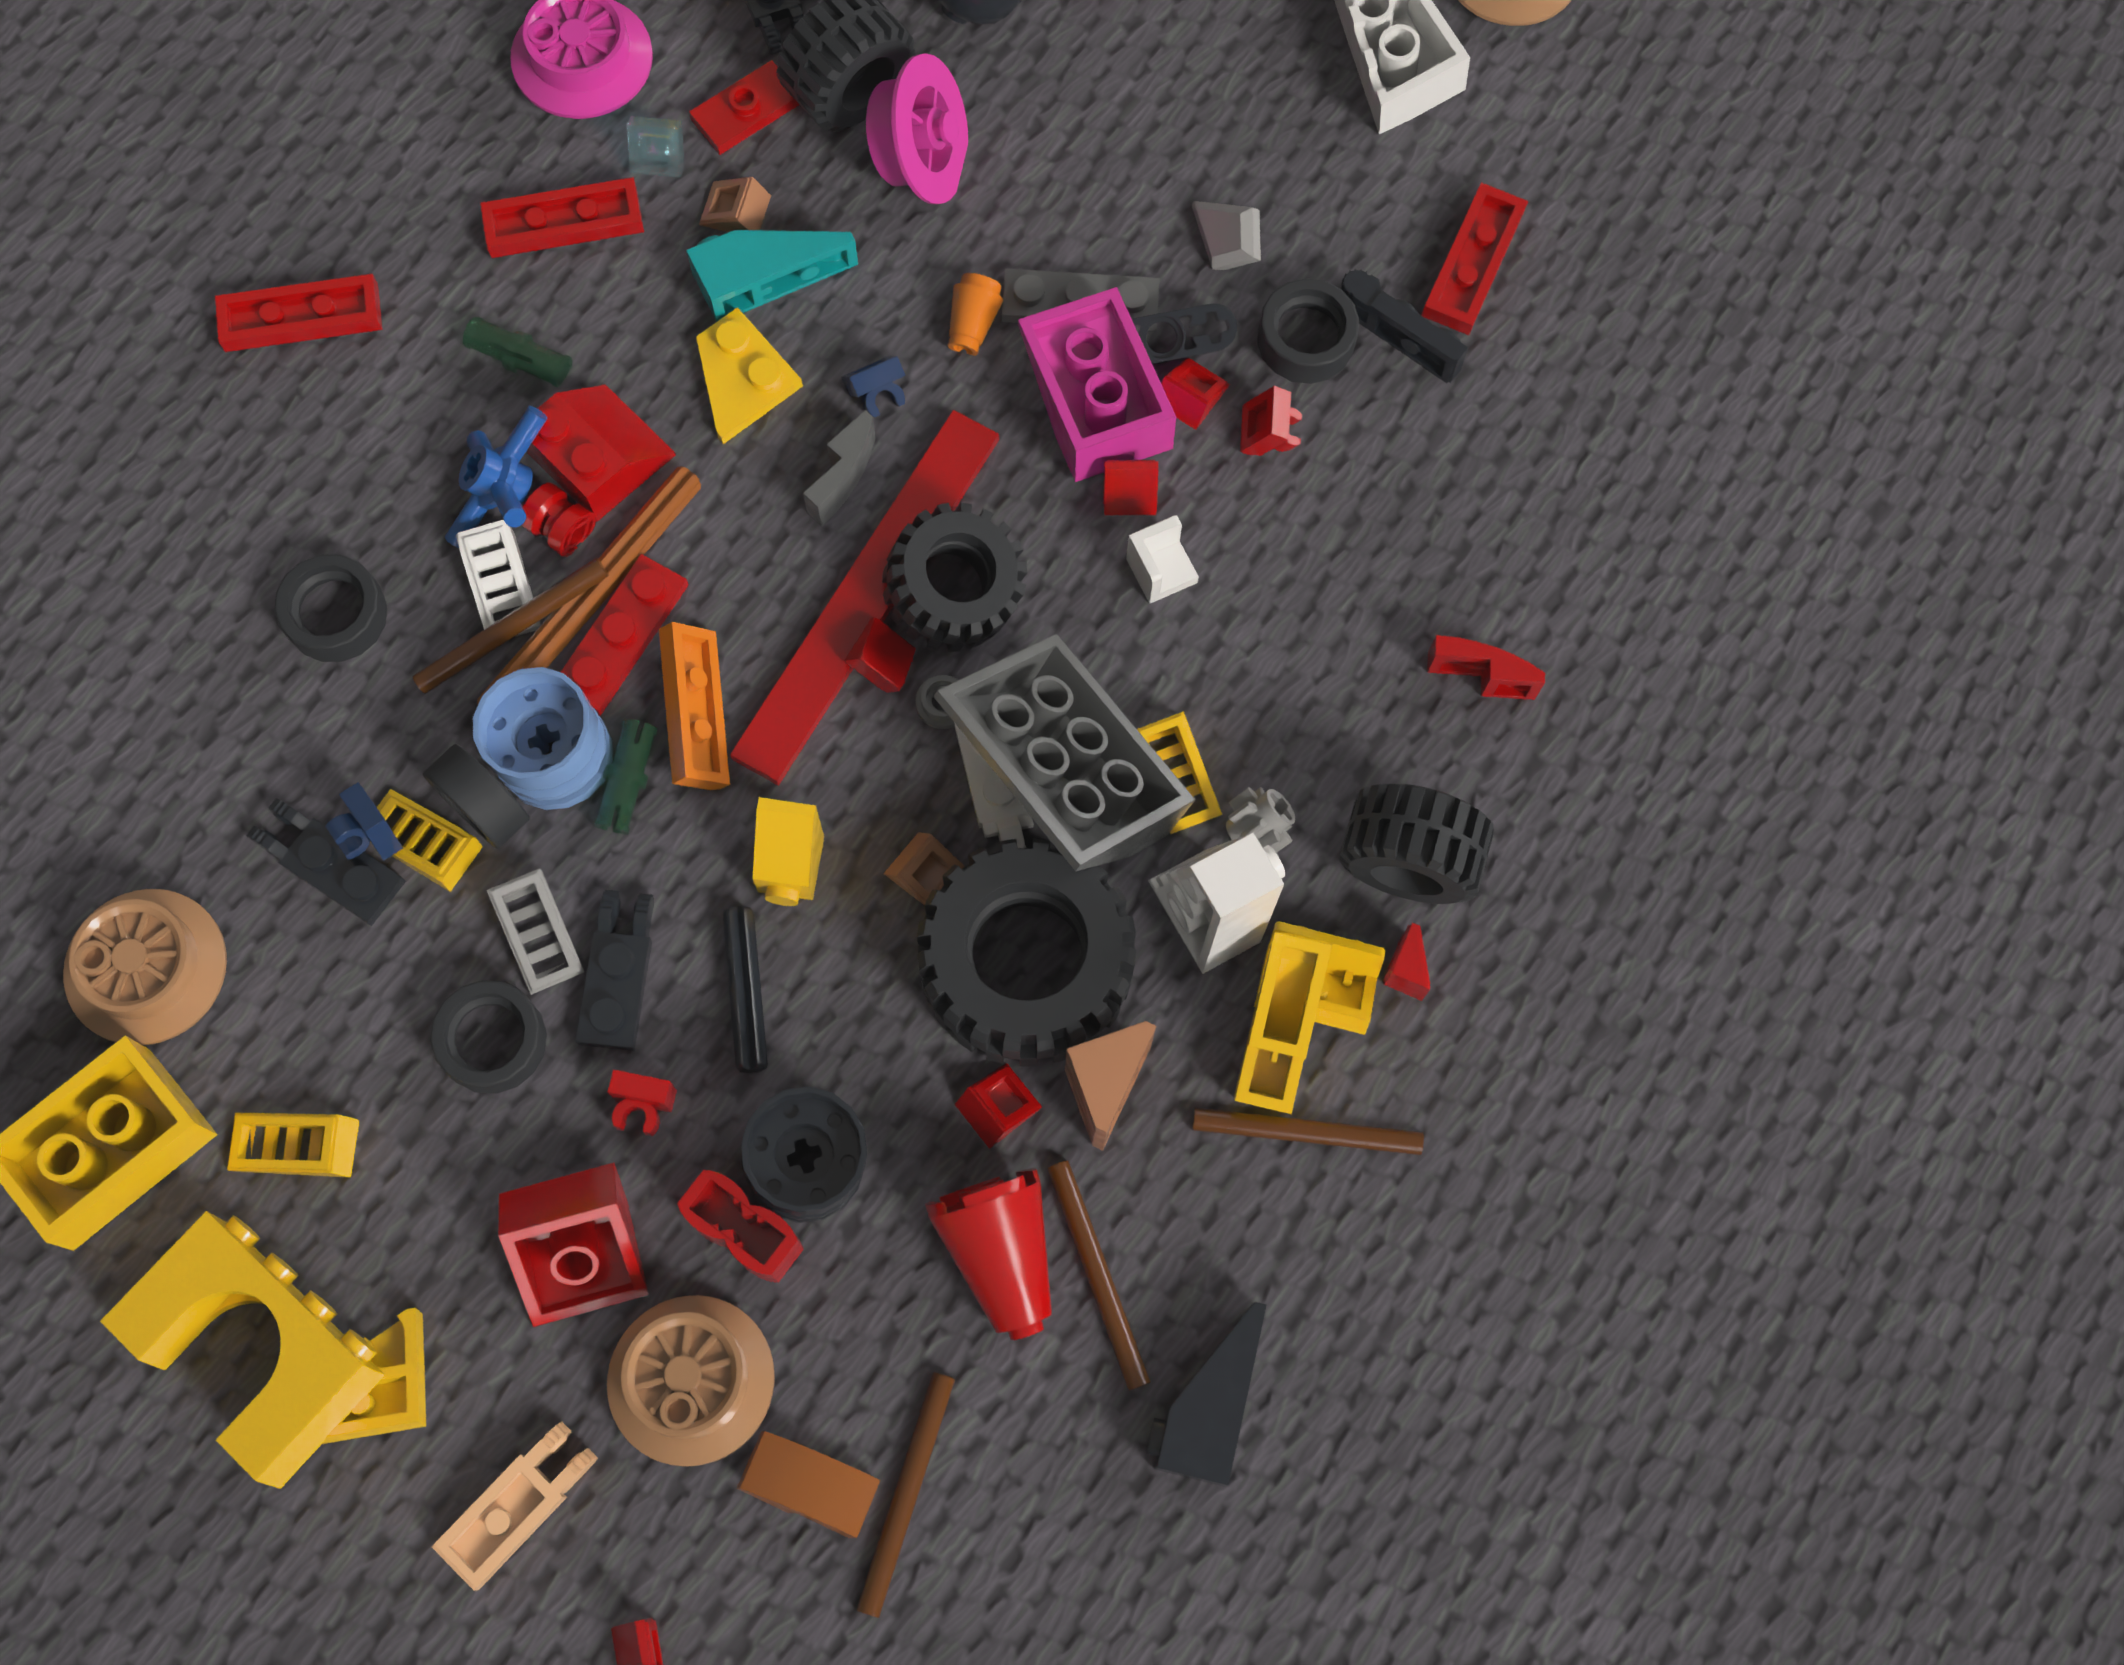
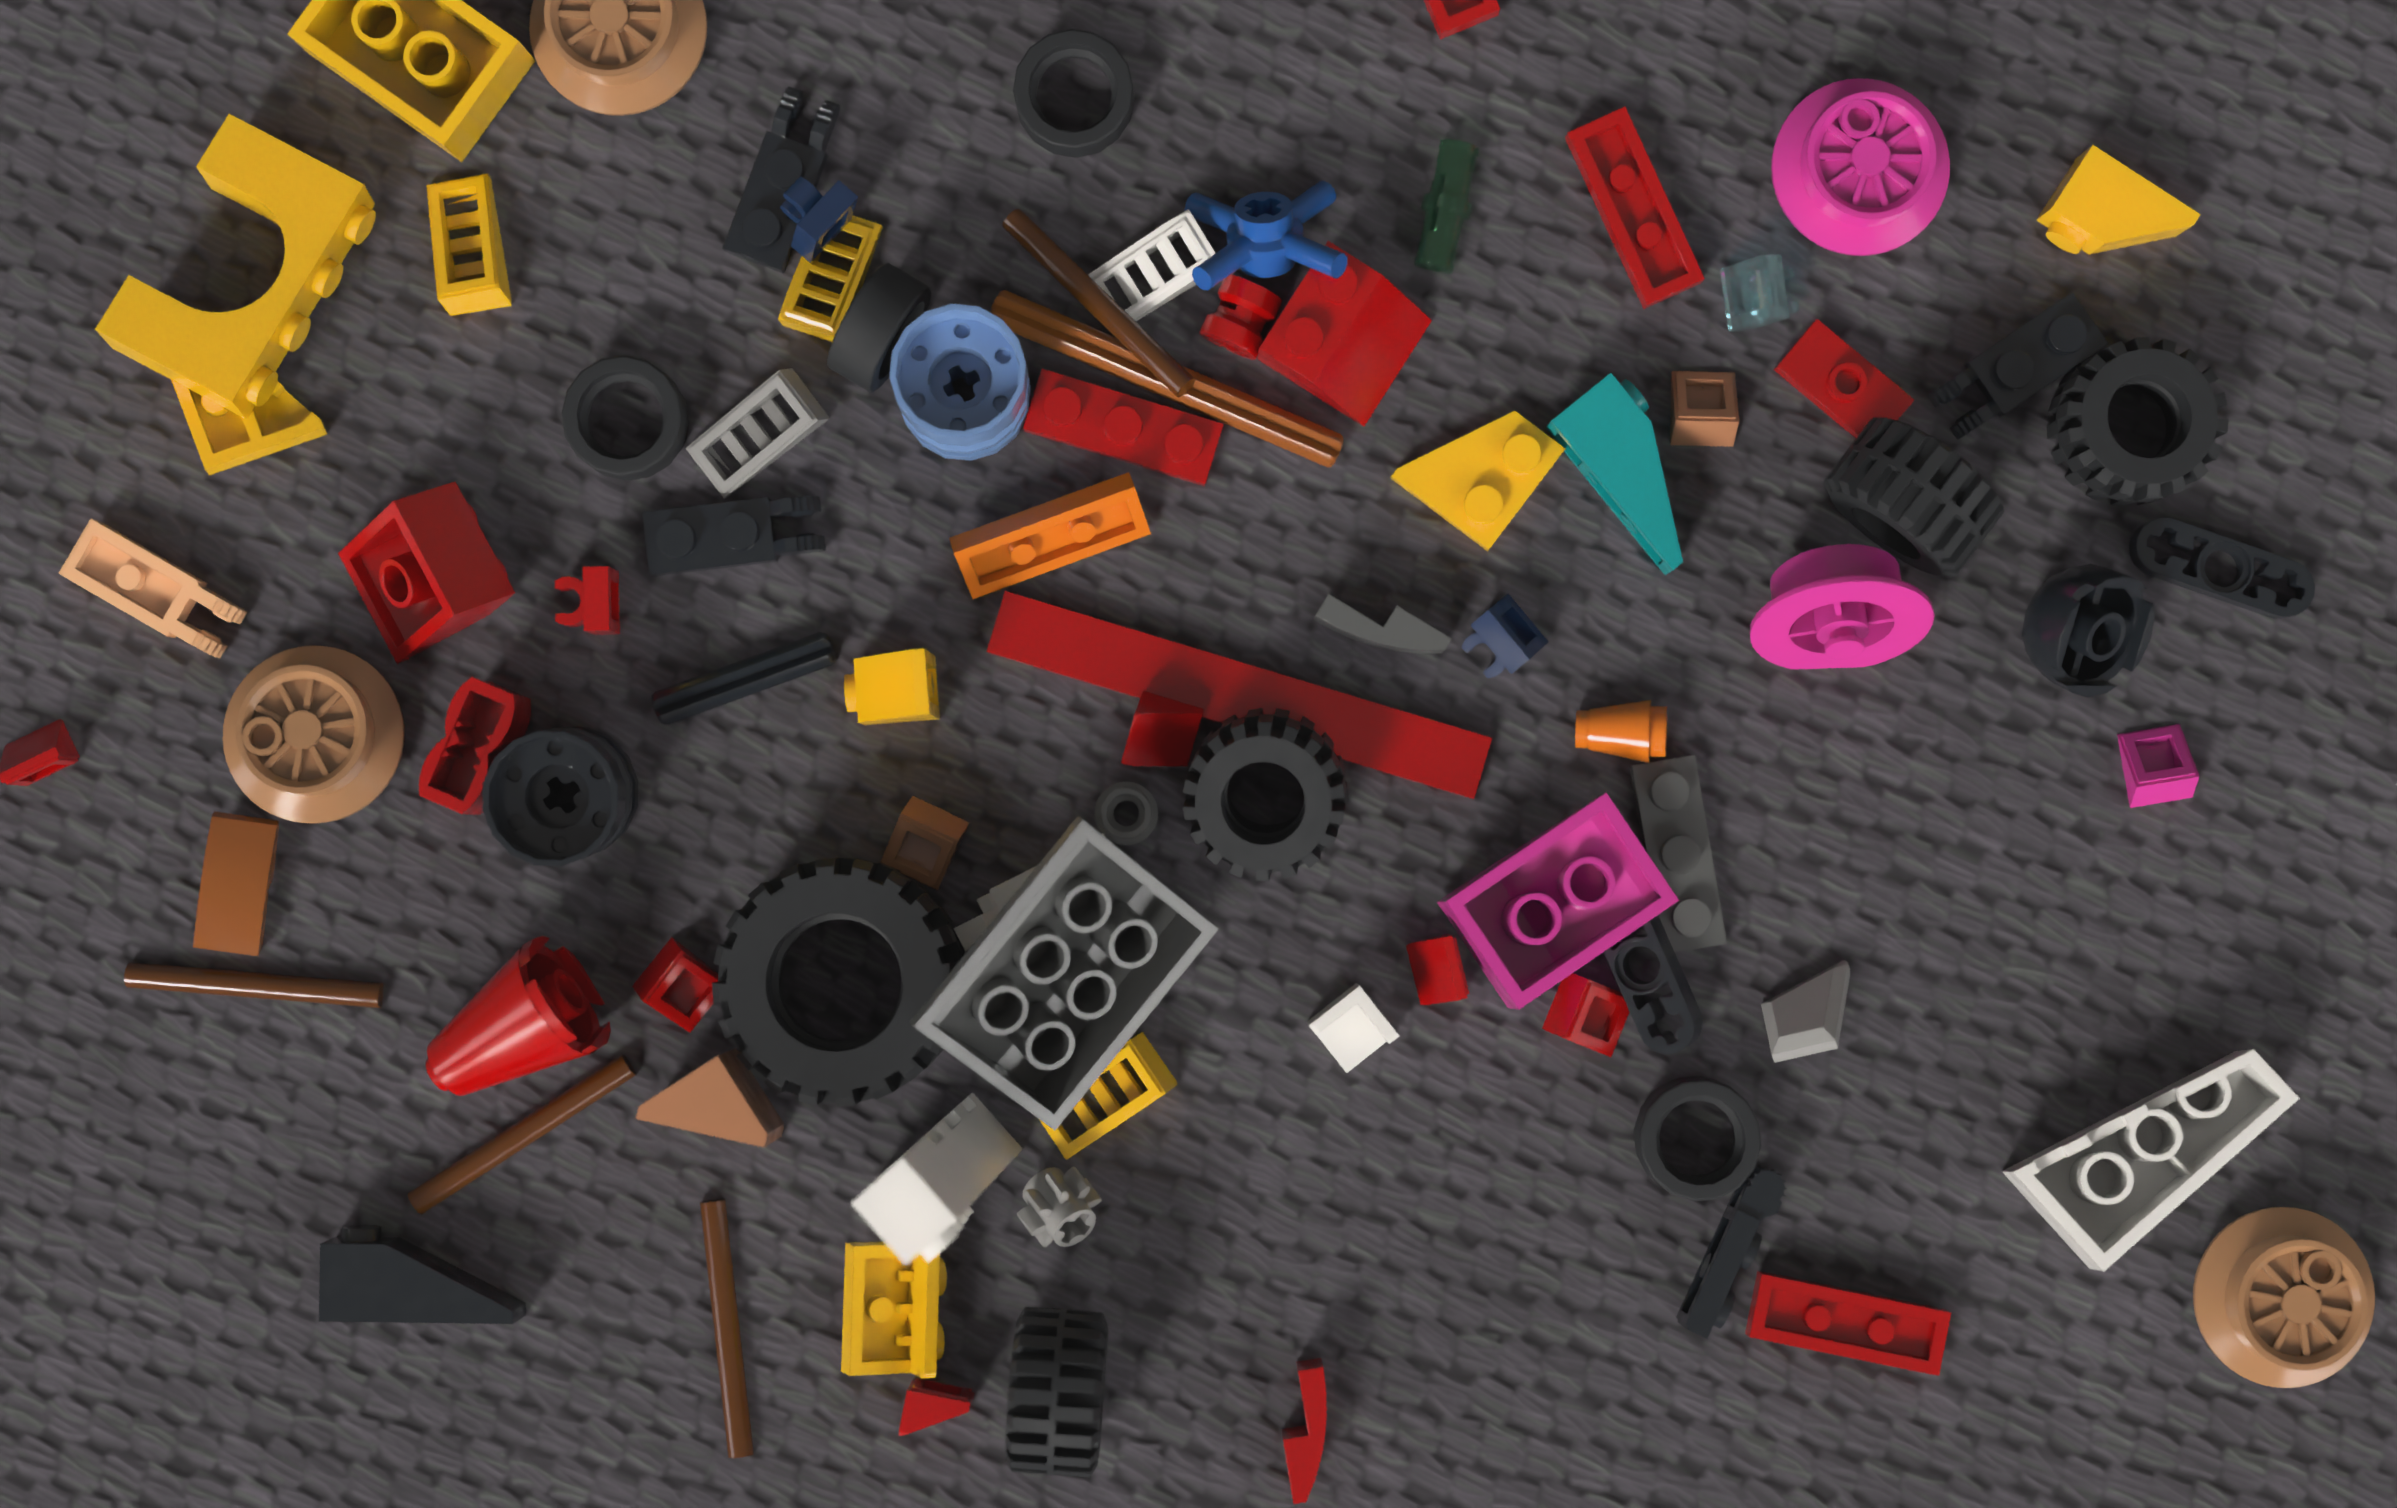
camera: 85 degrees right, 15 degrees up
(625, 776) = (952, 481): clear green pin -> none
(1267, 423) = (1562, 1114): red tile -> none
(1282, 1022) = (816, 1280): yellow slope -> none

